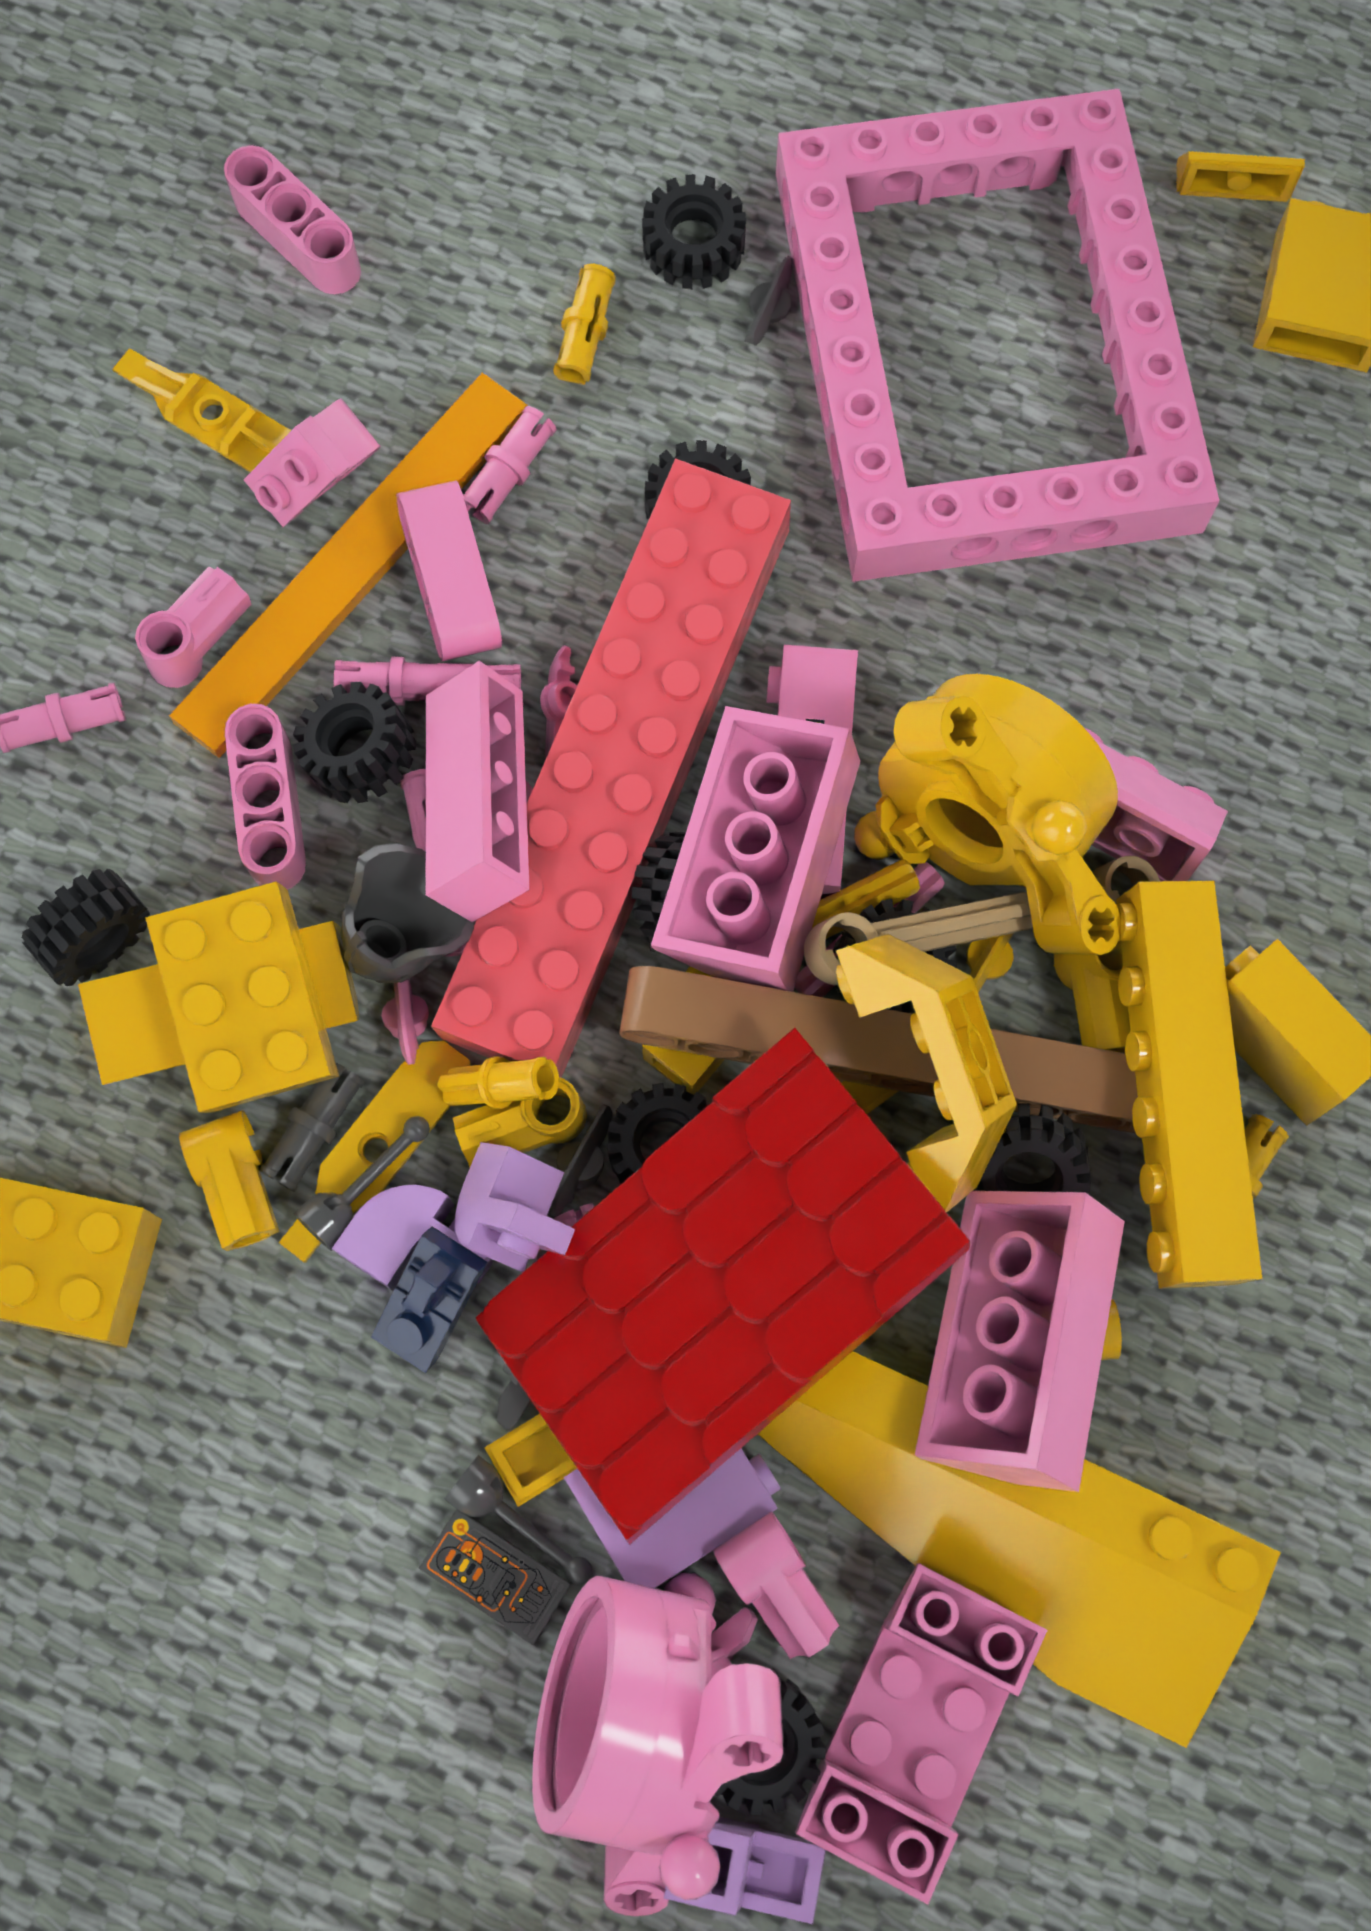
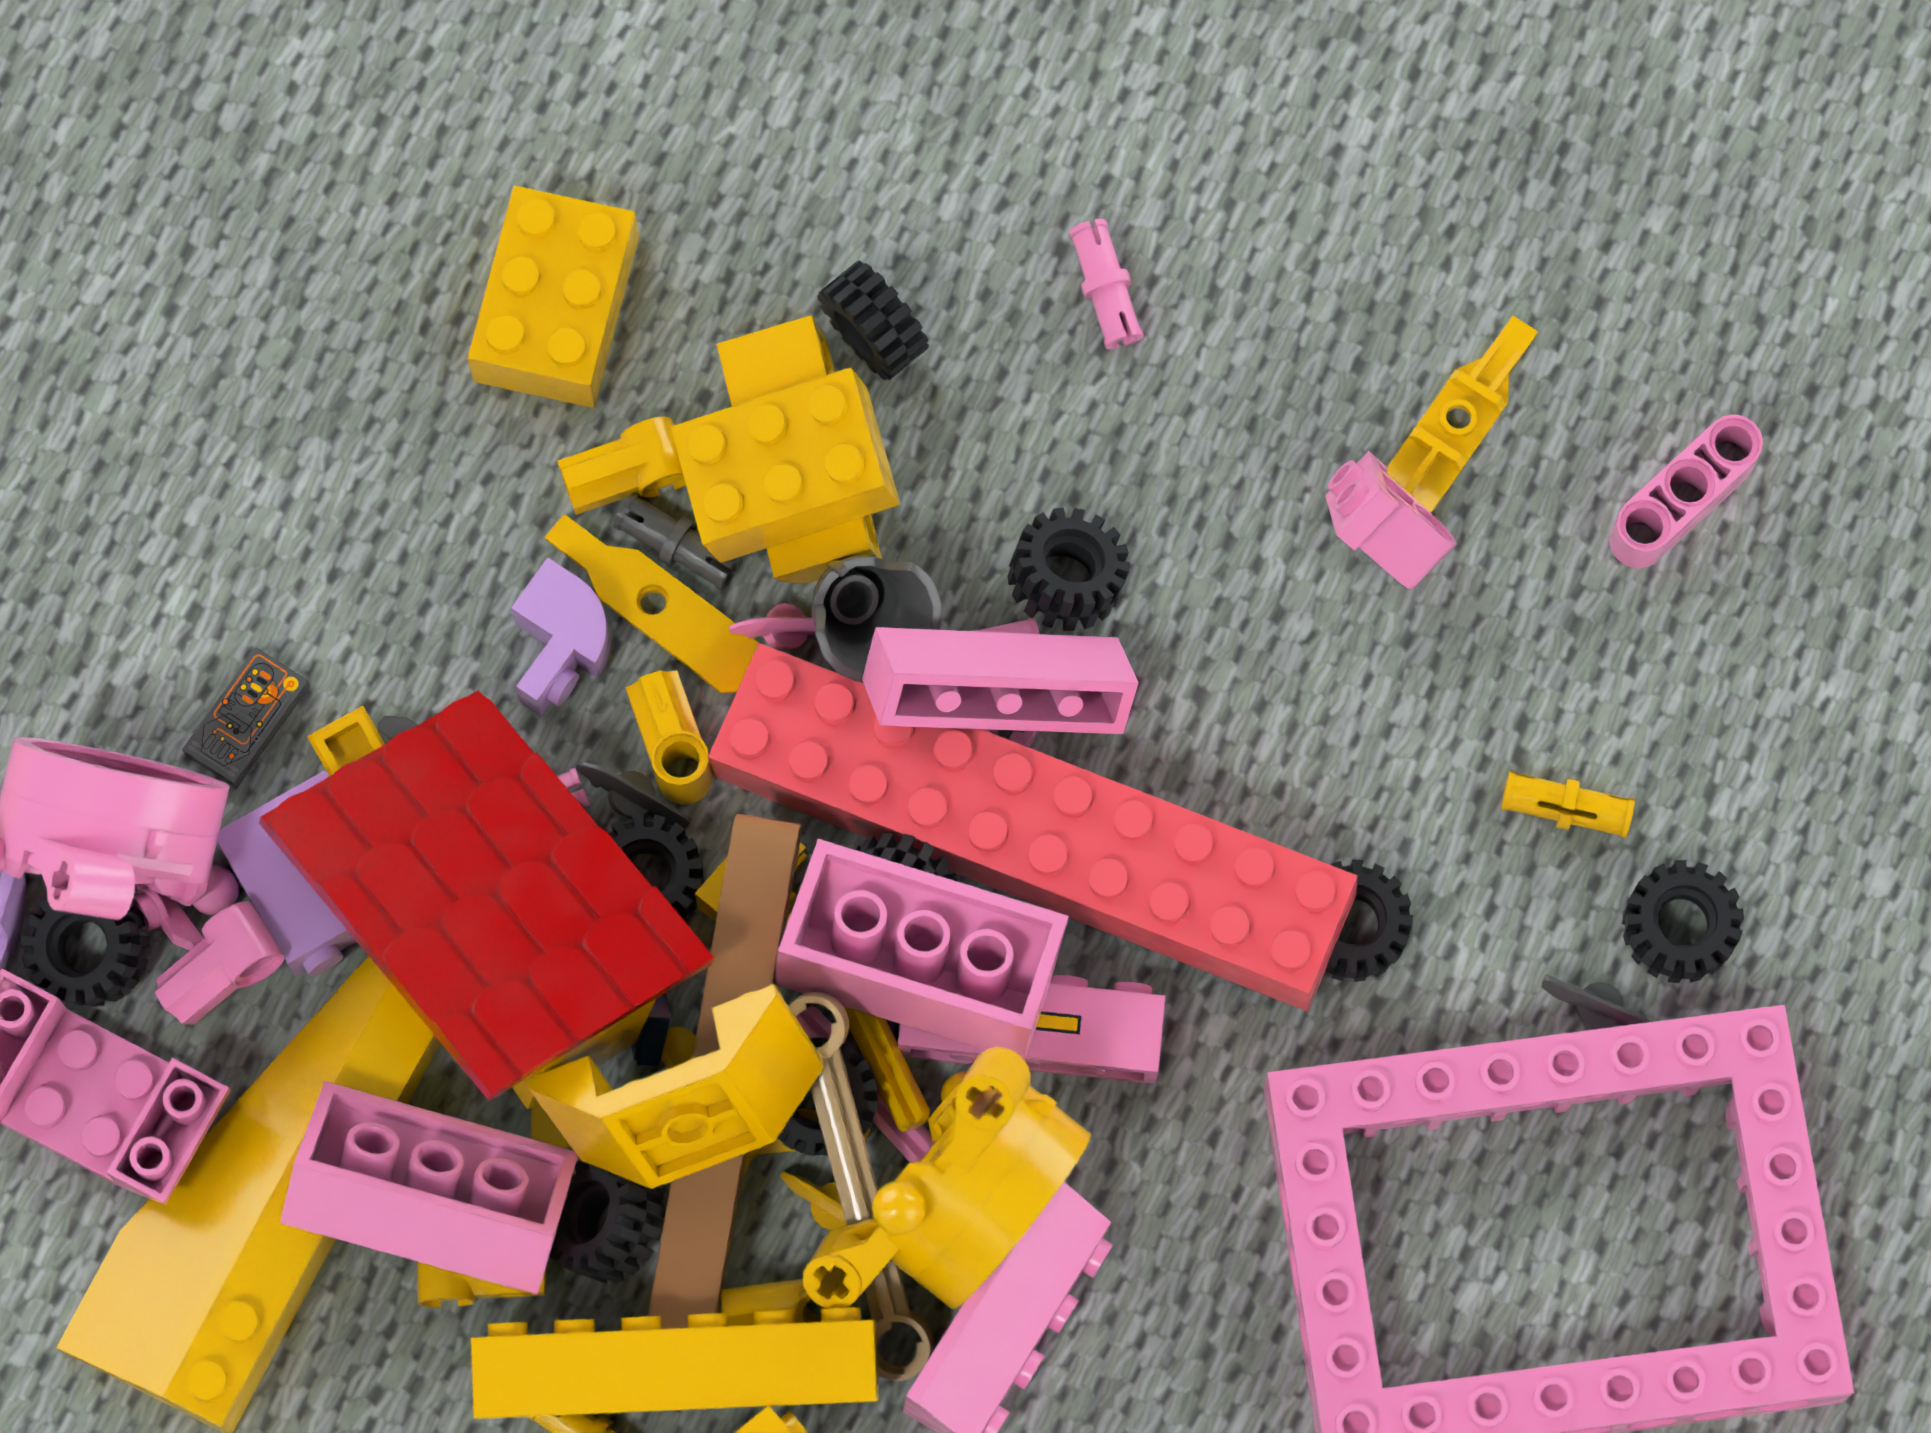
camera: 90 degrees right, 0 degrees up
(193, 624) = (1209, 411): bright pink piece -> none
(250, 775) = (1035, 464): bright pink beam -> none
(330, 1213) = (584, 556): dark grey hinge -> none
(344, 567) = (1285, 568): light orange tile -> none
(409, 680) = (1142, 619): bright pink pin -> none
(429, 1299) = (498, 649): dark blue hinge -> none
(449, 570) = (1261, 659): bright pink beam -> none
(481, 1493) = (321, 702): dark grey hinge -> none
(500, 1082) = (702, 710): yellow axle -> none
(507, 1207) = (578, 715): lavender brick -> none
(508, 464) = (1392, 721): bright pink pin -> none
(557, 694) = (1128, 772): bright pink piece -> none

